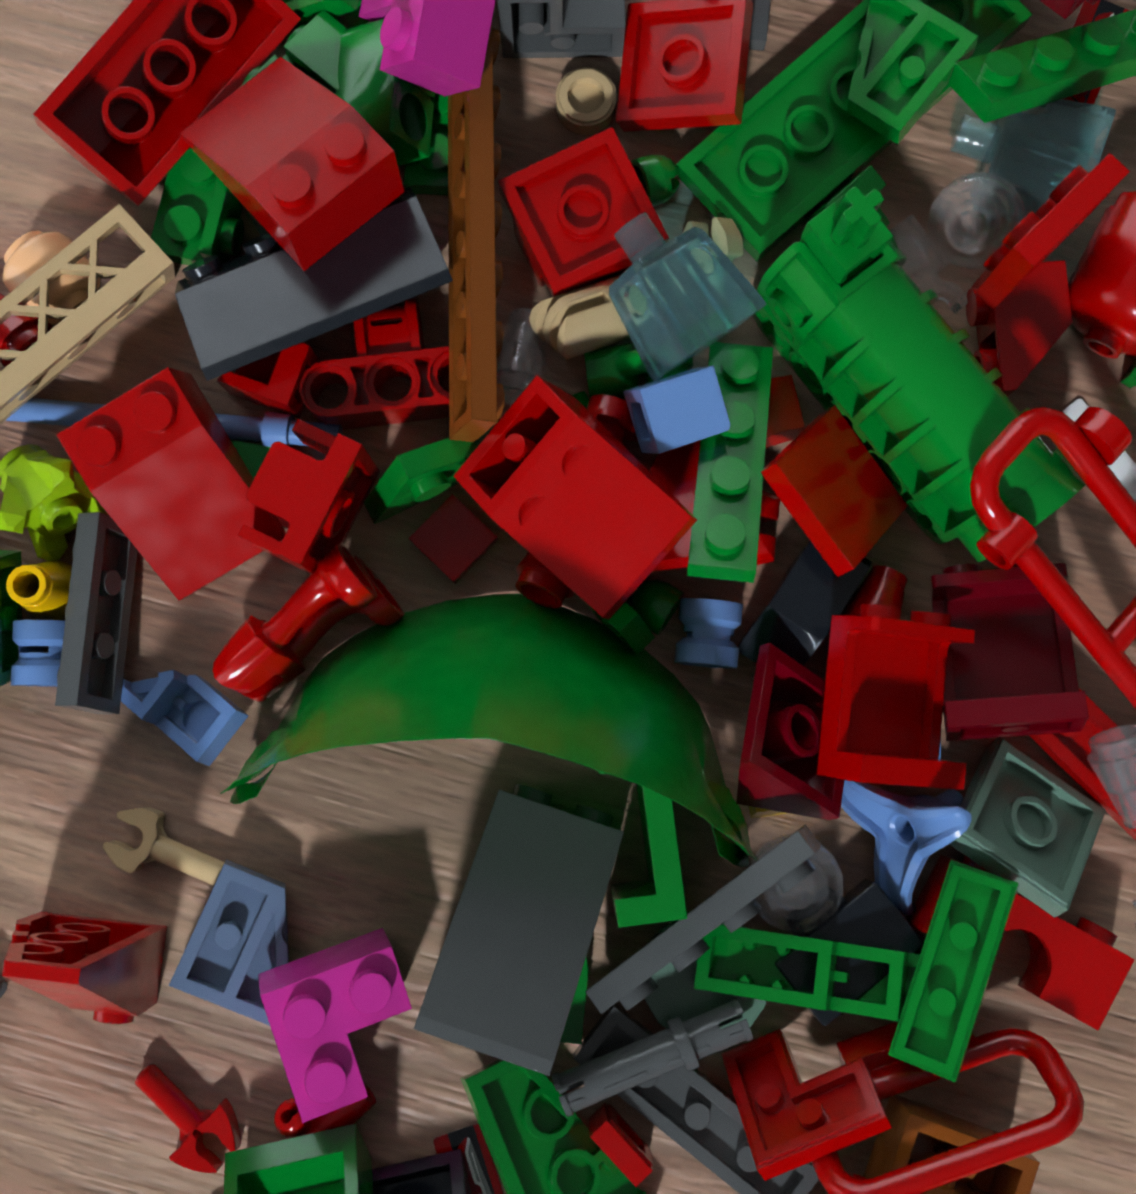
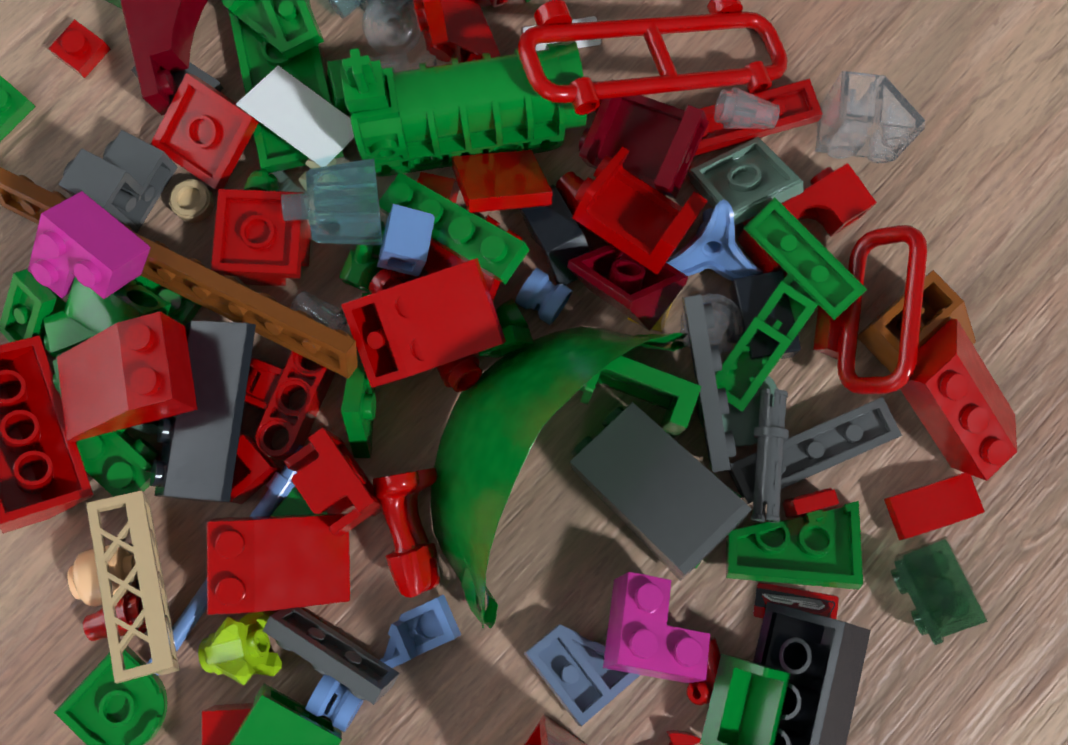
camera: 65 degrees left, 5 degrees down
(41, 588) = (307, 679): yellow cone -> none
(160, 848) = (495, 691): tan bar -> none
(453, 538) = (406, 414): red tile -> none
(579, 320) = (320, 268): tan arm -> none
(772, 169) = (298, 116): none -> white sticker
(795, 1120) = (847, 389): red tile -> none

